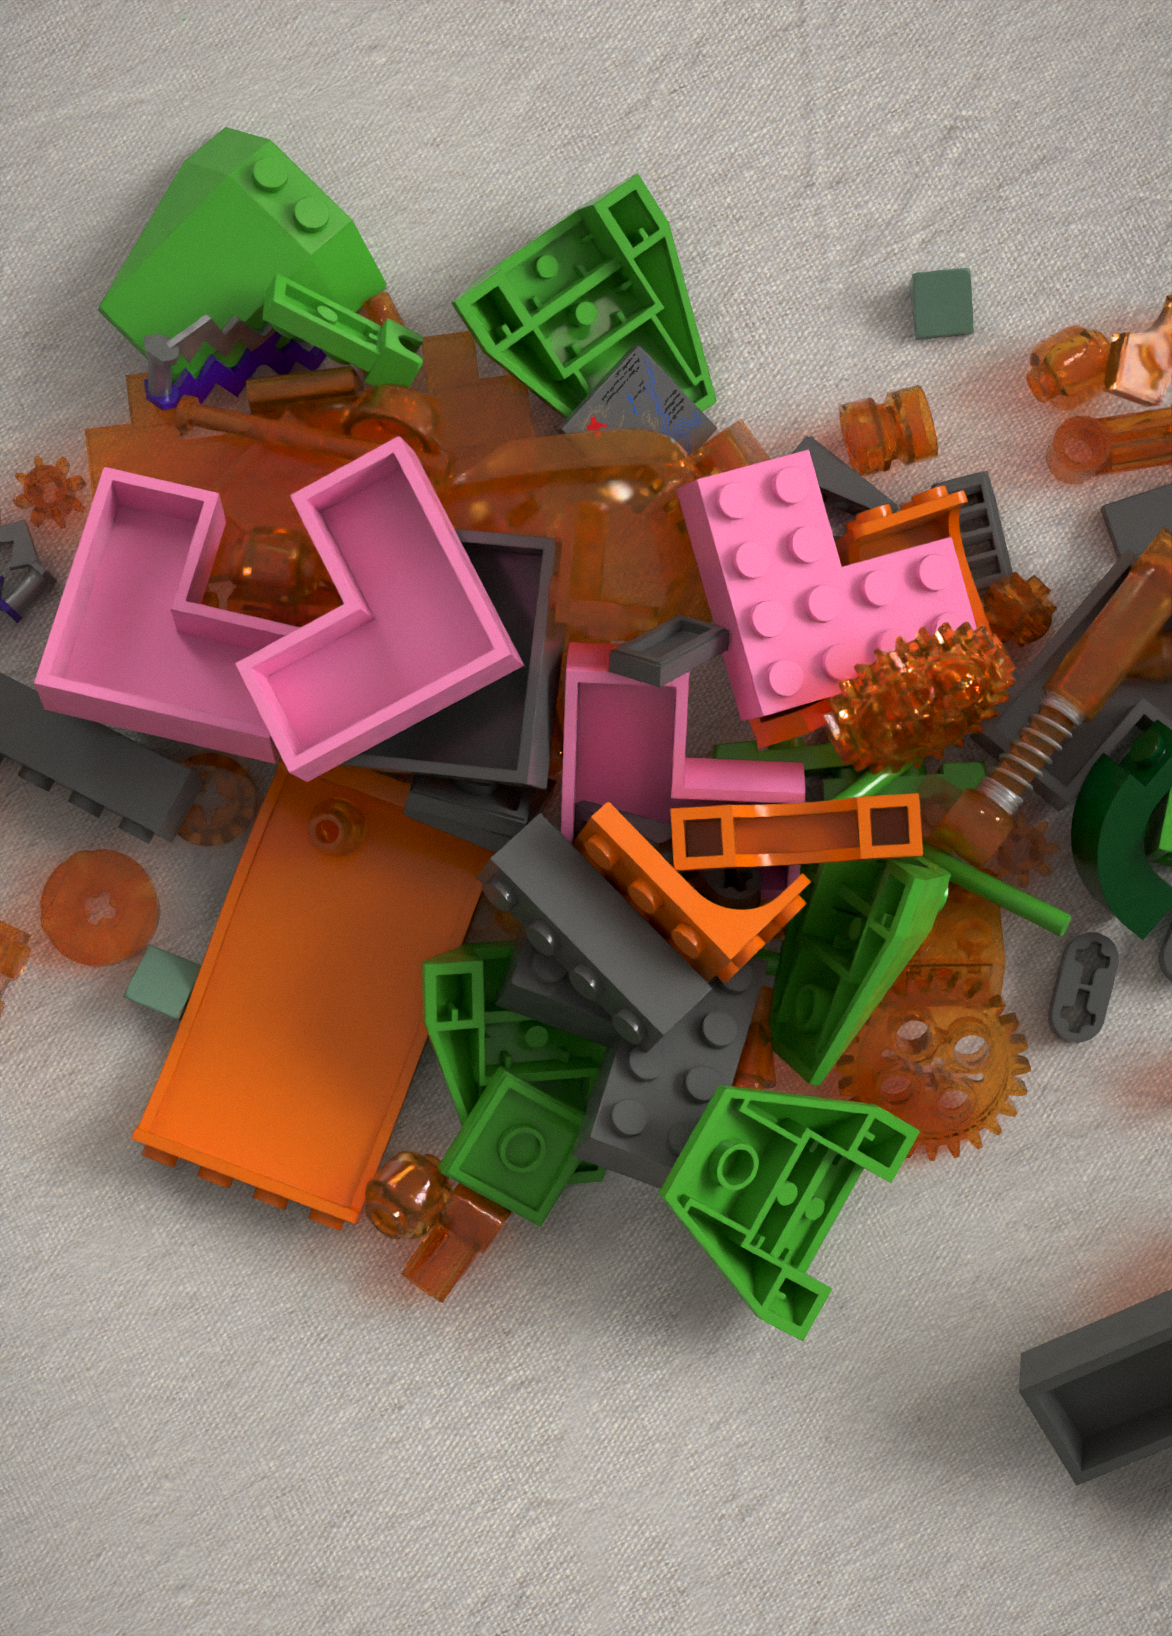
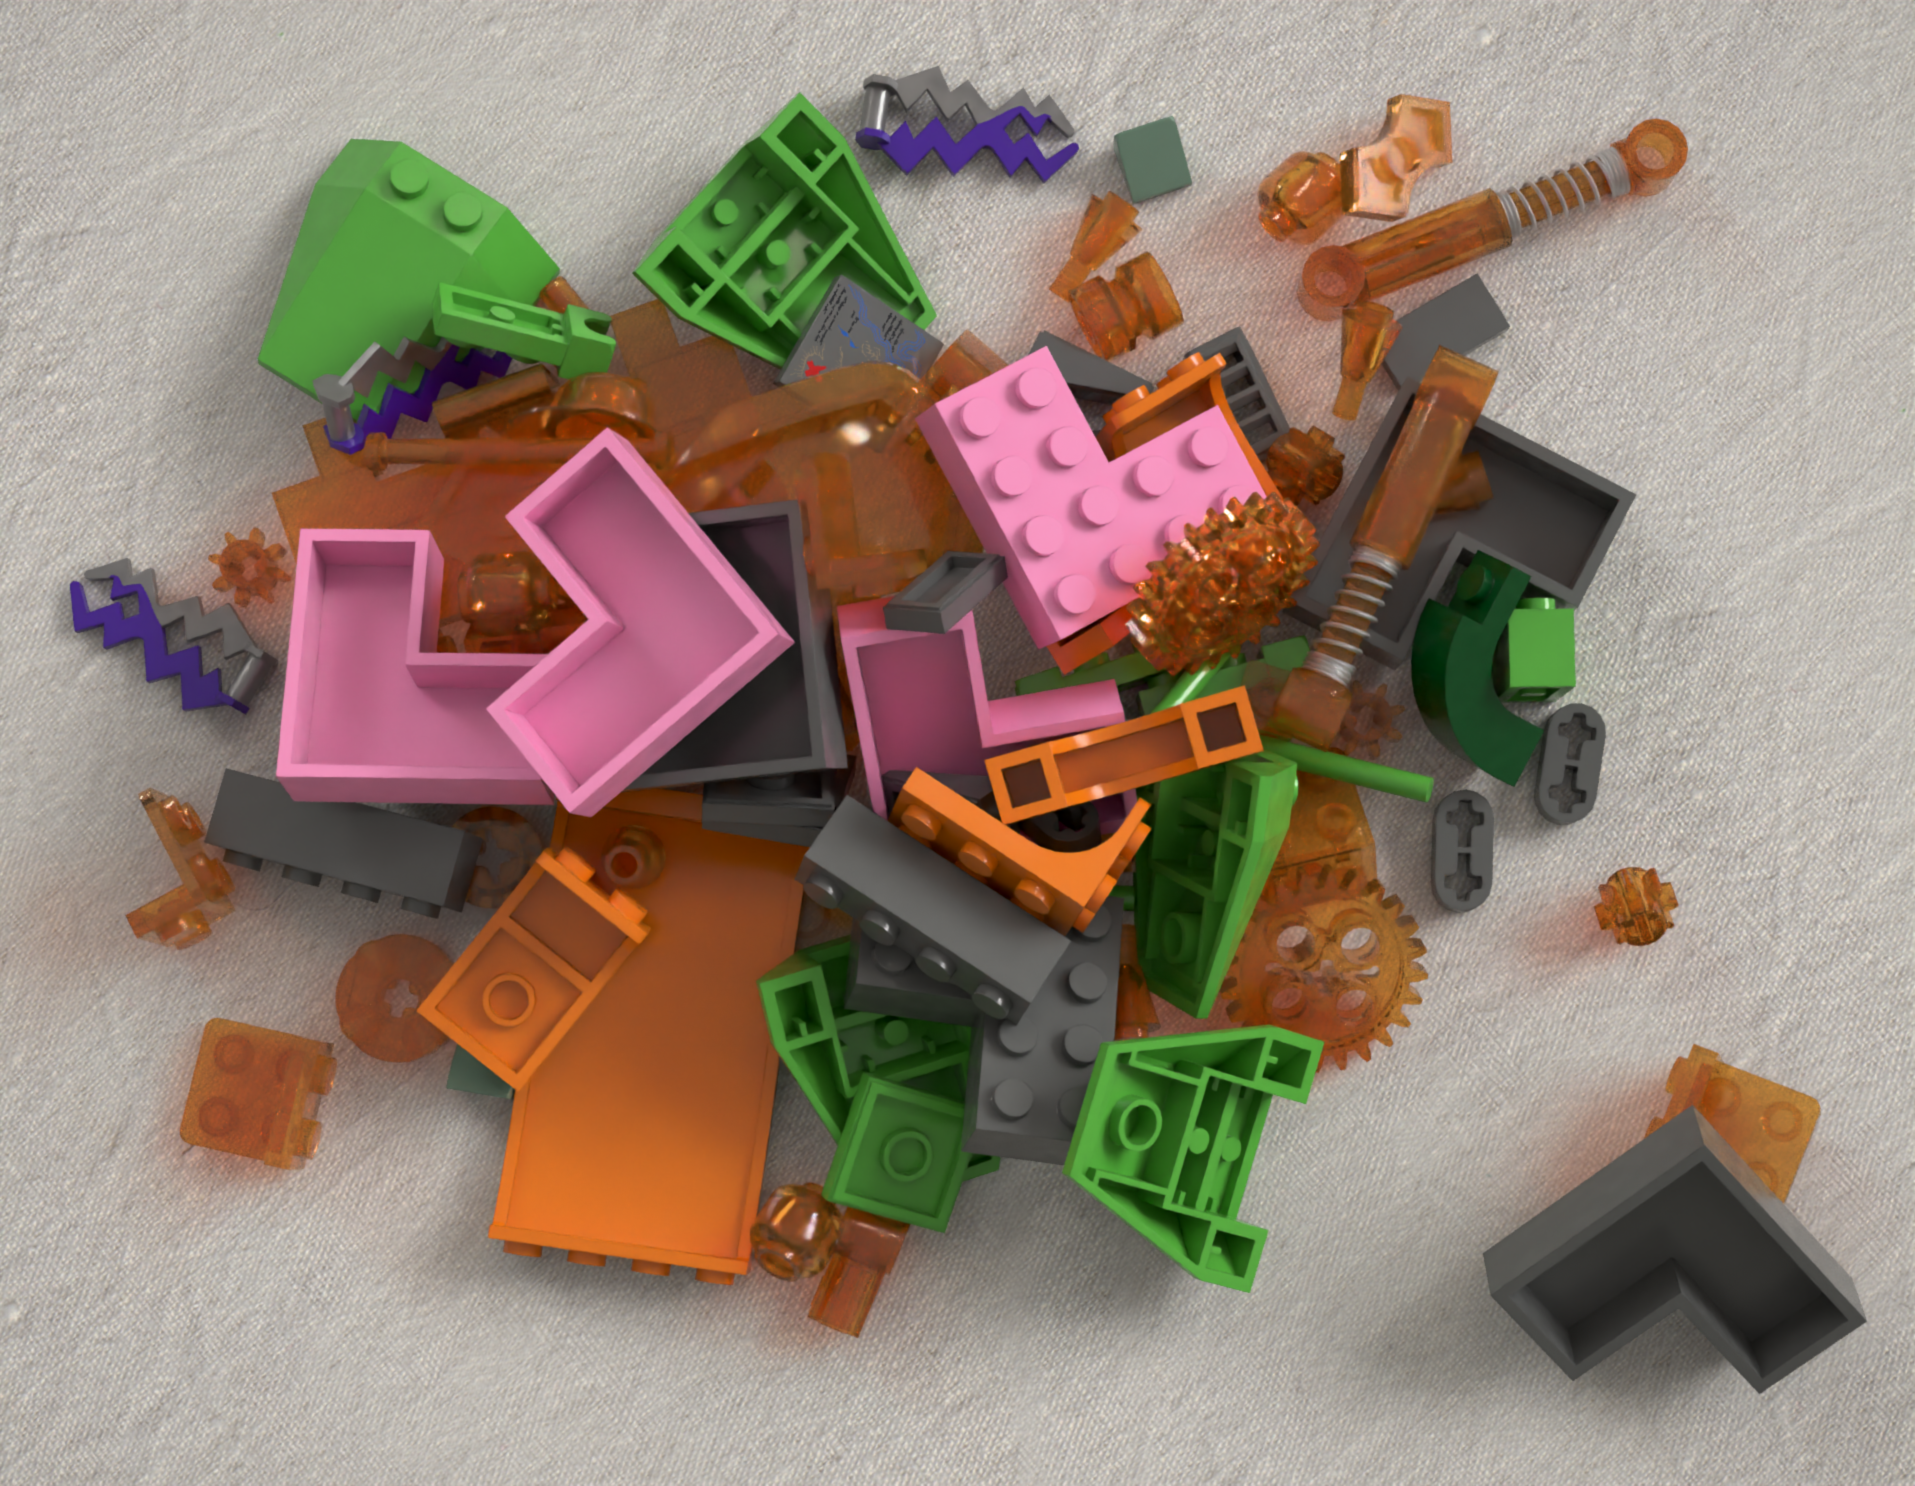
camera: 10 degrees left, 0 degrees up
(227, 905) = (536, 966): none -> orange bracket
(799, 247) = (988, 133): none -> piece
(881, 360) = (1101, 234): none -> clear orange cone
(1098, 509) = (1365, 342): none -> clear orange cone

